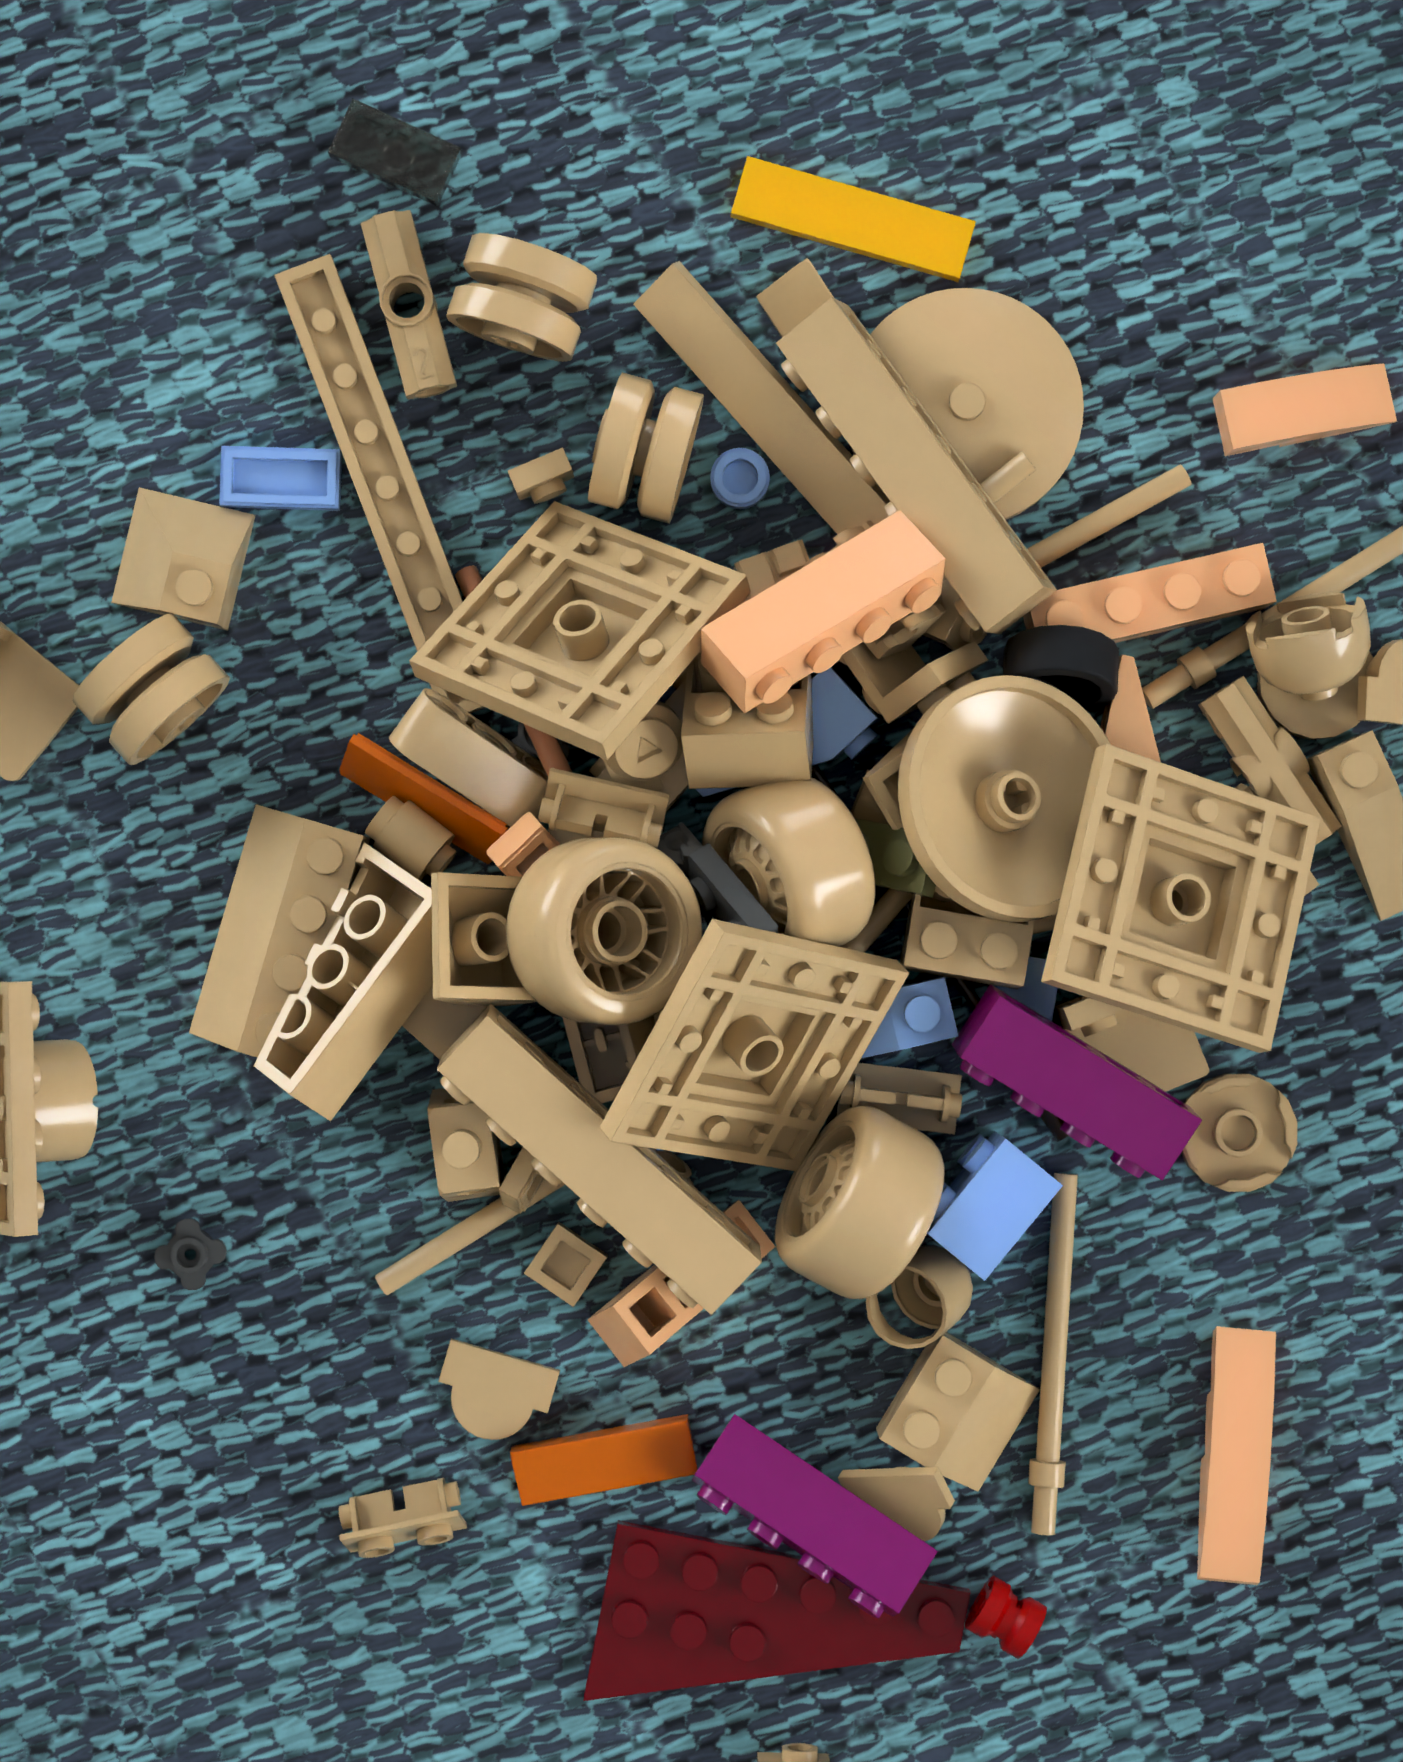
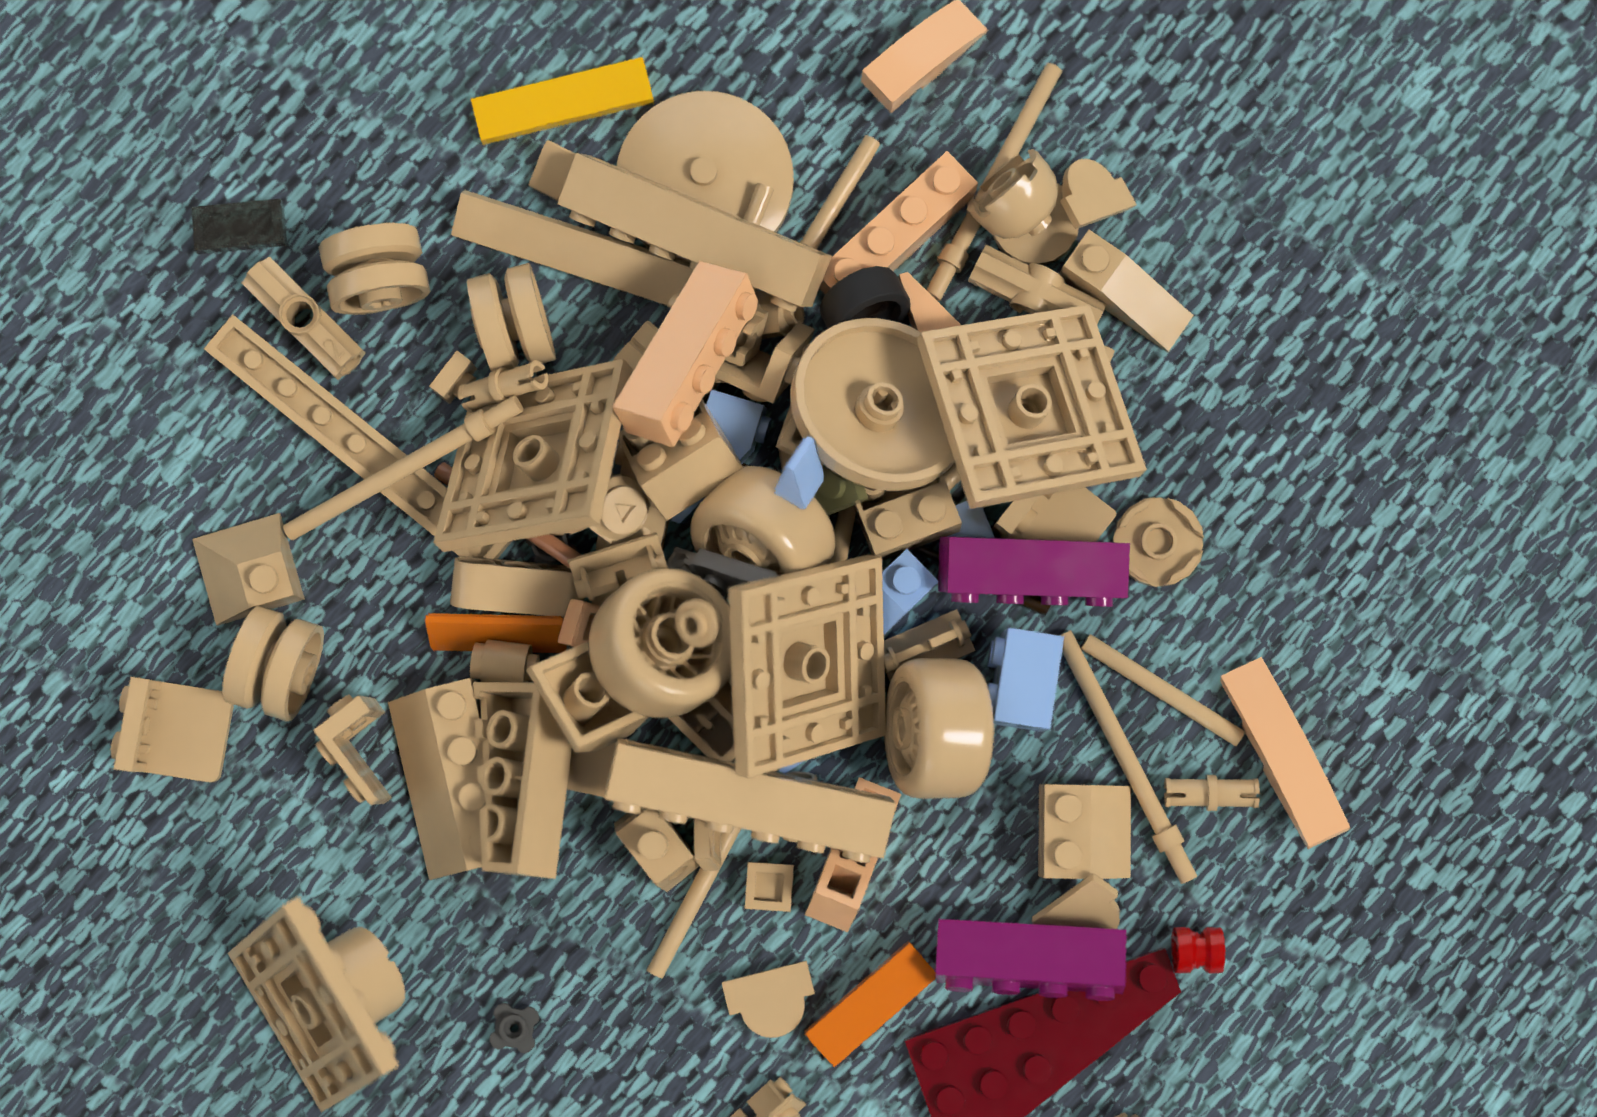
camera: 30 degrees left, 5 degrees down
(169, 829) = (346, 720): none -> tan bracket
(280, 478) = (283, 479): light blue tile -> none
(535, 552) = (475, 426): none -> tan bar
(591, 522) = (502, 385): none -> tan pin
(668, 937) = (707, 618): none -> tan plate
(739, 478) = (585, 307): light blue tile -> none
(871, 832) = (801, 475): none -> light blue slope
(943, 1277) = (1031, 768): tan helmet -> none
(1127, 1451) = (1211, 792): none -> tan pin
(1141, 1303) = (1163, 690): none -> tan bar

